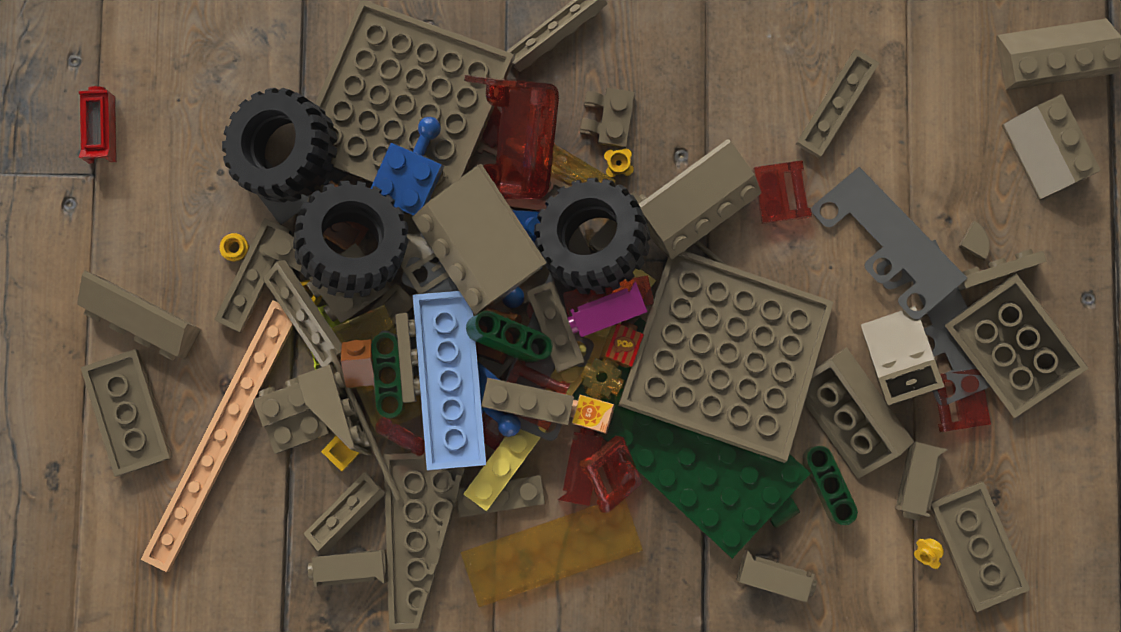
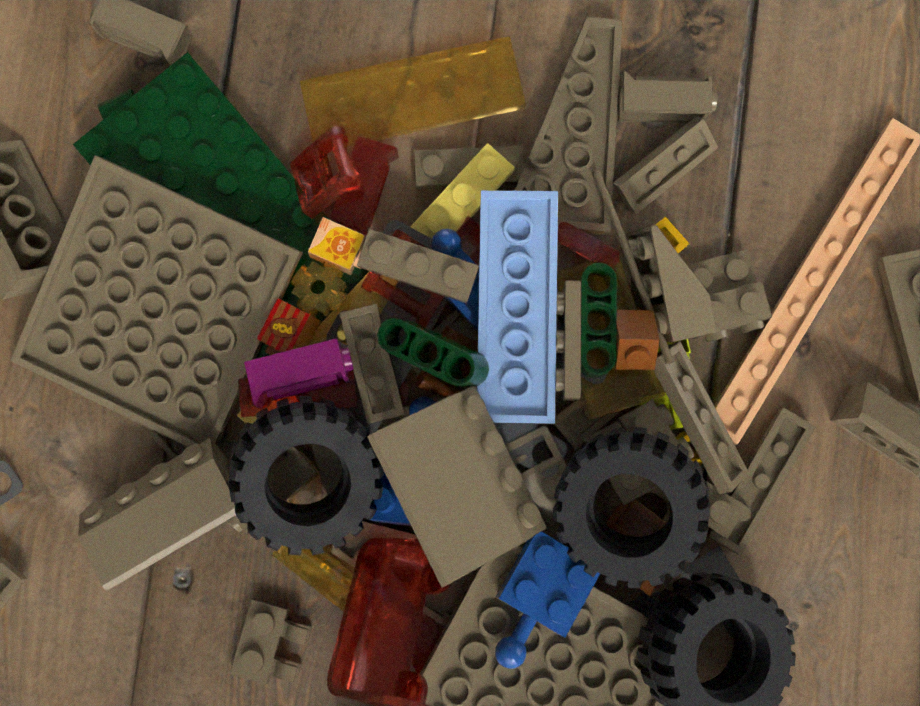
camera: 175 degrees left, 0 degrees up
(226, 243) = (793, 525): yellow plate -> none
(619, 155) = (257, 586): yellow plate -> none
(773, 198) = (65, 501): clear red plate -> none
(840, 495) = (43, 120): dark green beam -> none

